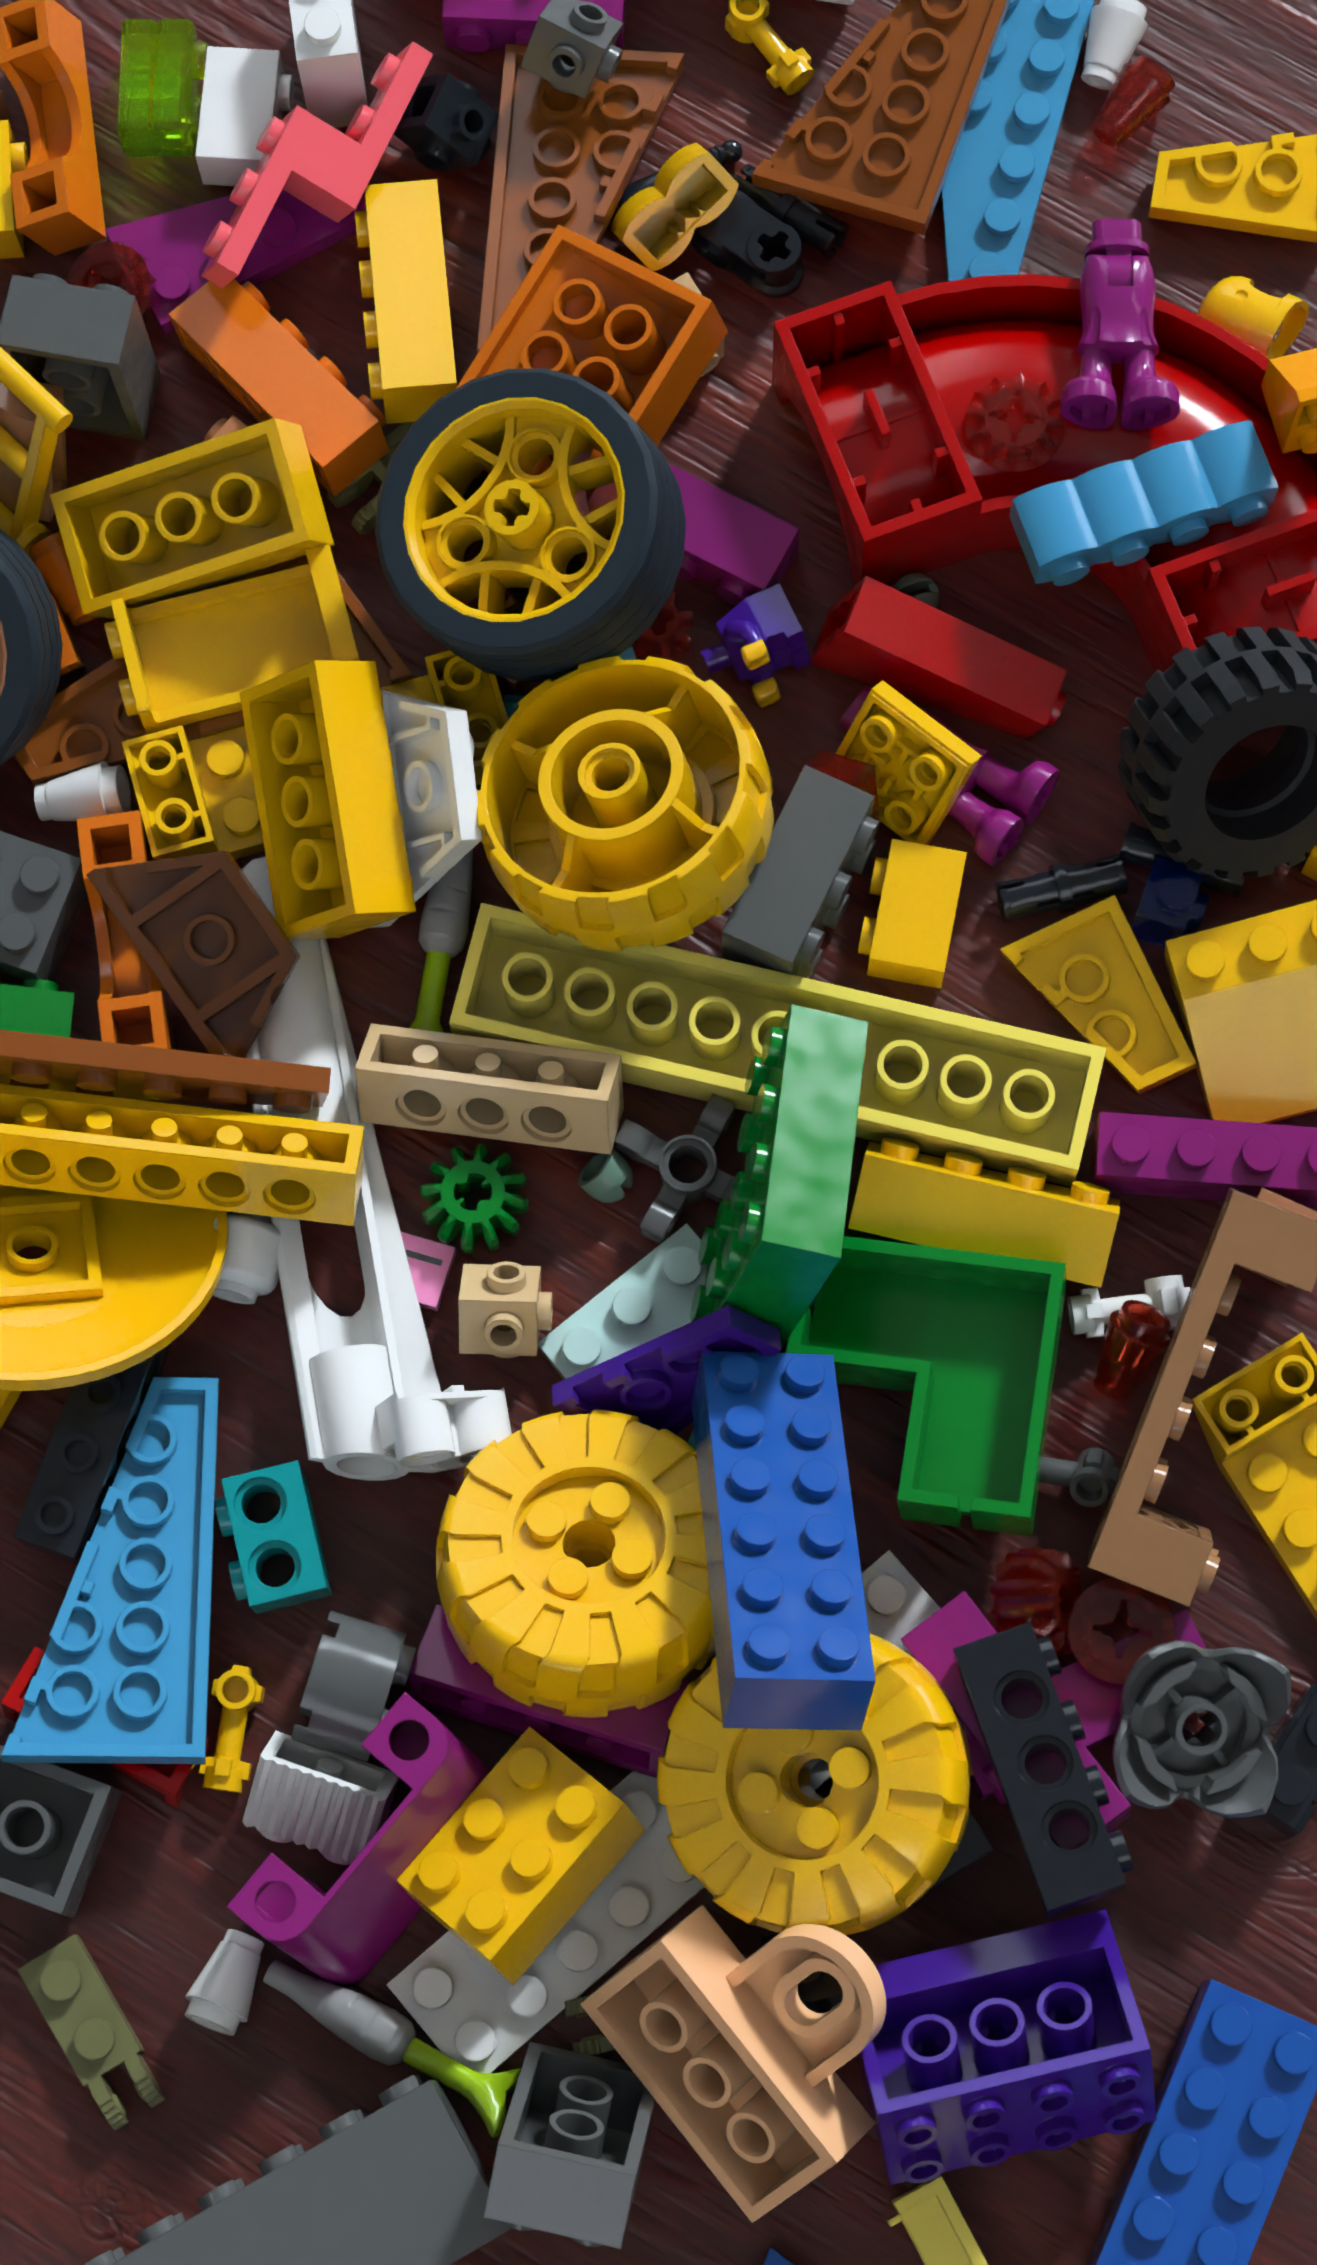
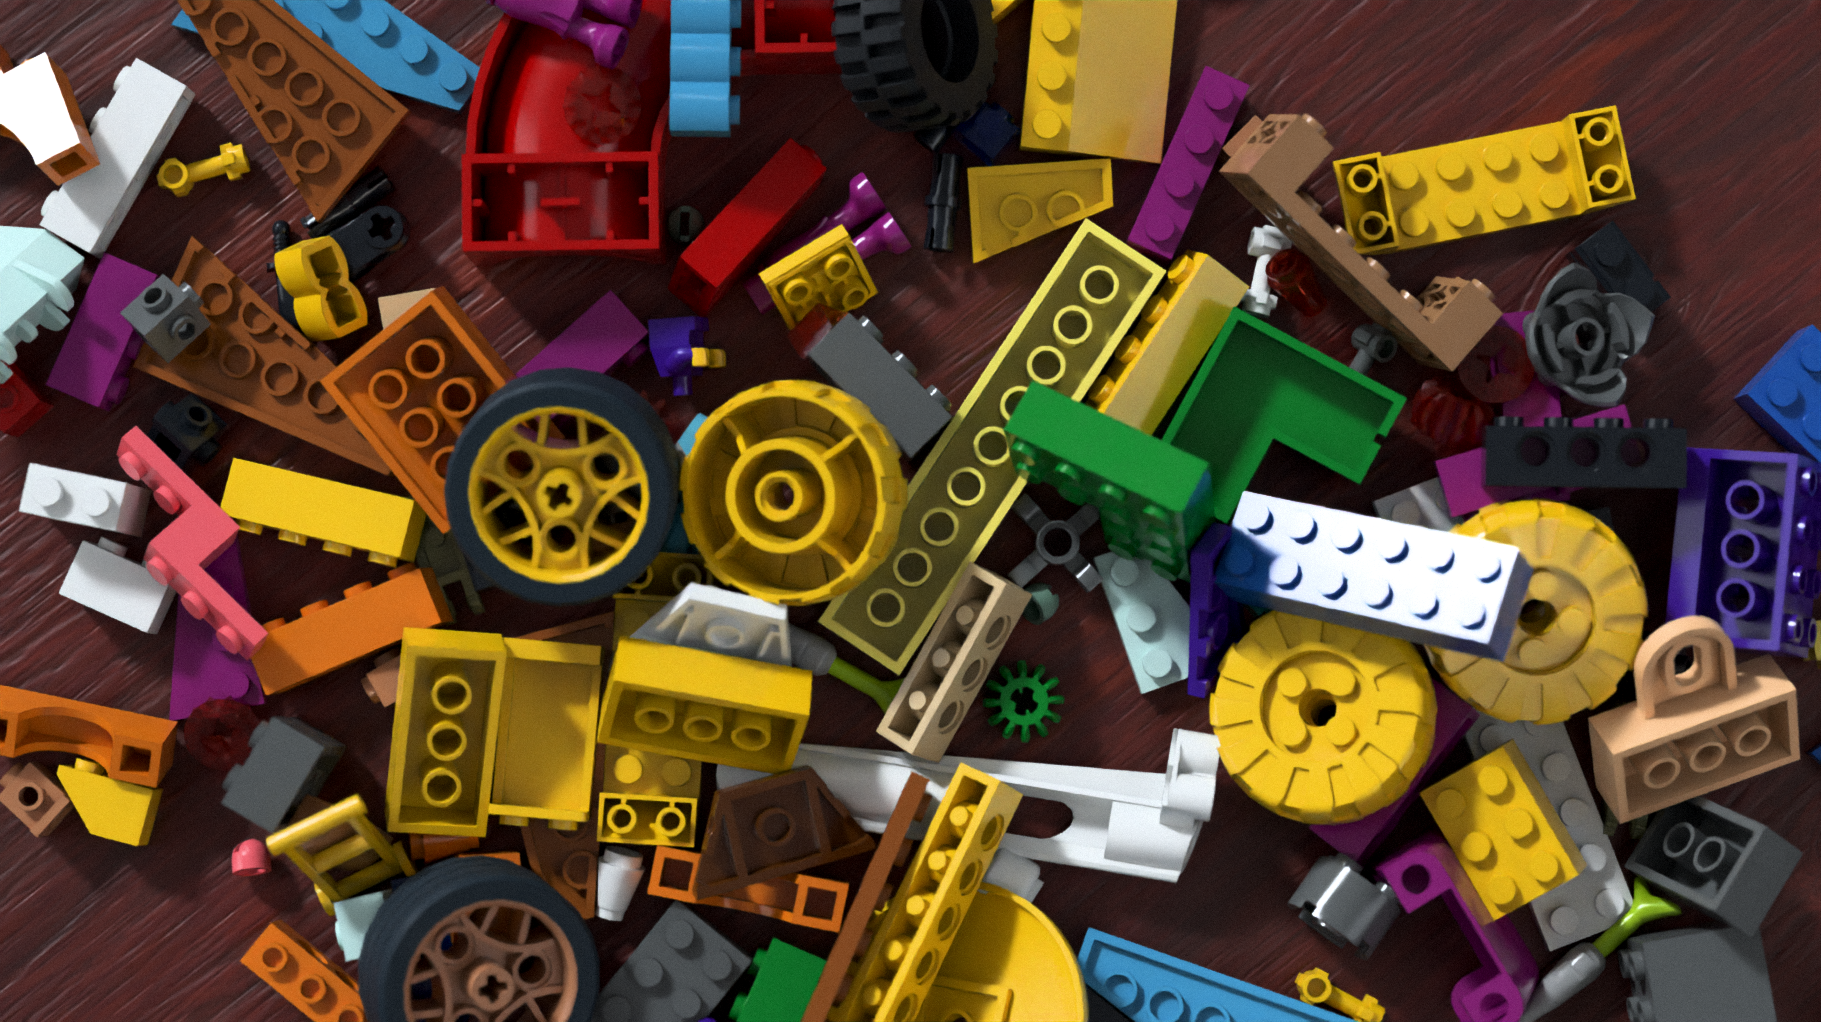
camera: 80 degrees left, 10 degrees up
(160, 87) = (69, 640): clear neon green brick -> none
(289, 1533) = (1218, 914): teal brick -> none
(318, 1798) = (1413, 956): white brick -> none
(430, 1268) = (1059, 751): bright pink tile -> none
(502, 1309) = (1113, 709): tan brick -> none
(914, 914) = (927, 314): yellow brick -> none

